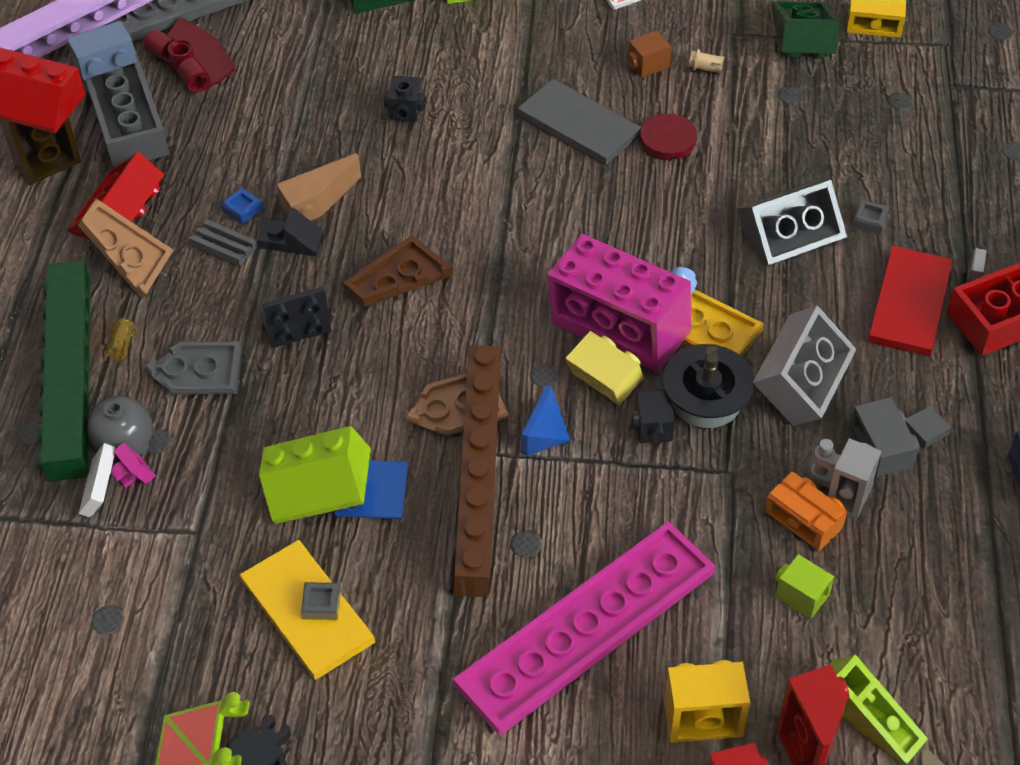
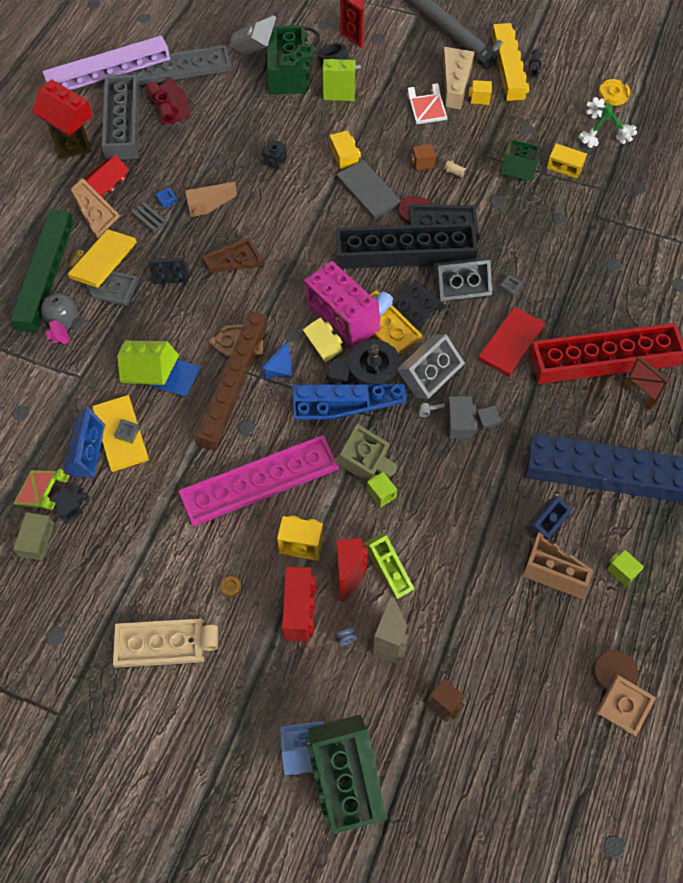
camera: 15 degrees right, 10 degrees up
(97, 480) = (37, 336): white tile -> none
(102, 50) = (115, 89): sand blue brick -> none
(167, 325) = (102, 258): none -> yellow tile
(254, 642) = (84, 445): none -> blue slope
(294, 236) = (186, 221): black slope -> none
(515, 69) = (344, 149): none -> yellow brick
(676, 456) = (338, 401): none -> blue wedge
(679, 190) = (405, 245): none -> black brick
(721, 142) = (442, 215): none -> black tile
(737, 276) = (418, 304): none -> black bracket
(767, 526) = (370, 449): none -> olive brick
(806, 510) = (401, 448): orange brick -> none
(818, 434) = (425, 409): none -> light grey hand
(852, 472) = (428, 434): light grey brick -> none
(976, 265) = (556, 331): light grey tile -> none

